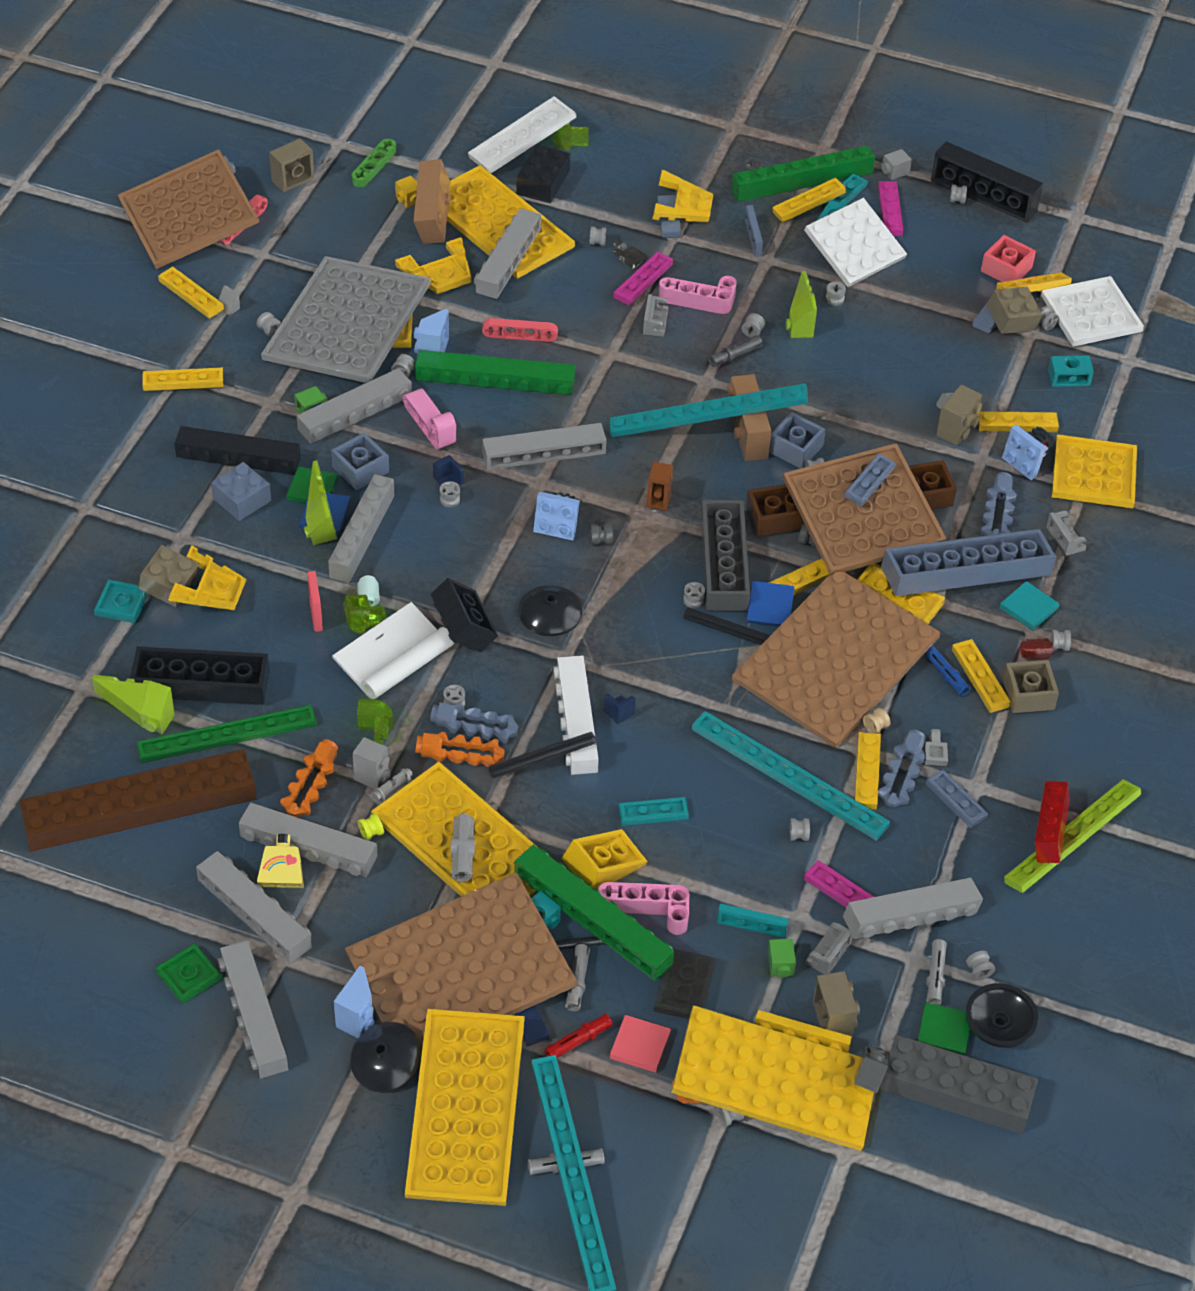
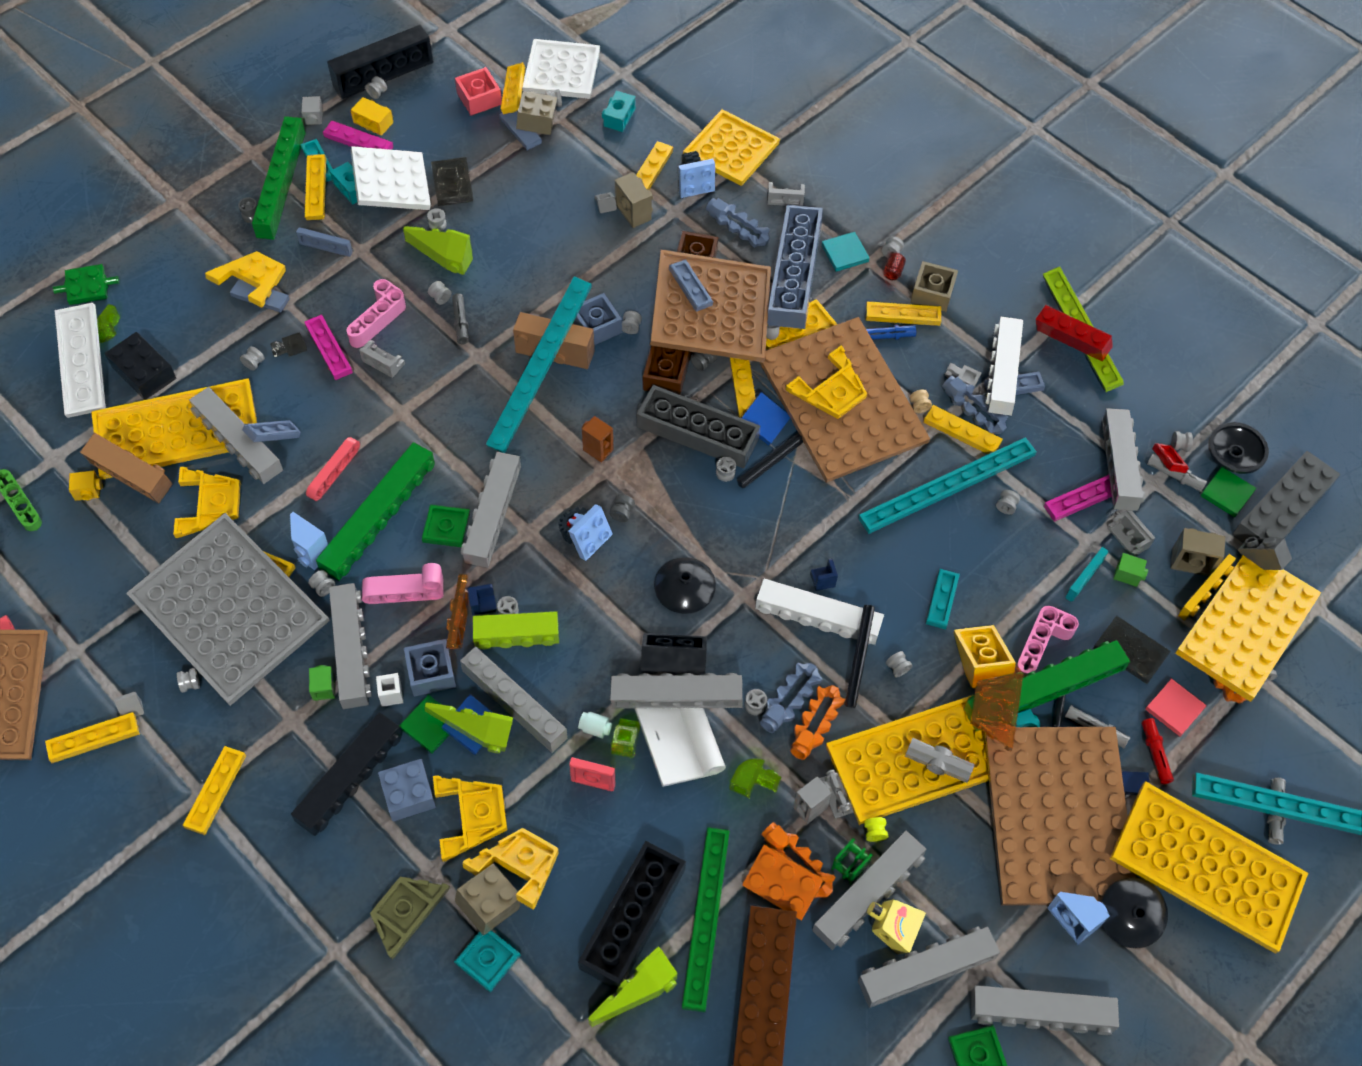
camera: 65 degrees left, 10 degrees up
(134, 531) = (404, 910): none -> olive wing
(244, 548) = (480, 810): none -> yellow wing
(283, 772) = (783, 882): none -> orange plate
(323, 442) = (389, 689): none -> white brick
(326, 815) = (860, 856): none -> green piece
(414, 459) = (459, 608): none -> clear orange wing
(424, 627) = (677, 691): none -> light grey brick
(431, 506) = (515, 630): none -> lime brick
(509, 421) = (446, 526): none -> green tile
(526, 272) = (271, 431): none -> sand blue tile
(538, 867) = (997, 707): none -> clear orange wing
(555, 793) = (899, 664): none -> light grey wheel
(605, 110) = (86, 284): none -> green plate
(831, 641) = (837, 393): none -> yellow wing
(873, 571) = (772, 332): none -> light grey hinge
(888, 286) = (452, 181): none -> clear smoke plate
(922, 204) = (372, 116): none -> yellow brick
(947, 956) = (1170, 458): none -> red tile
(968, 775) = (1005, 367): none -> white brick

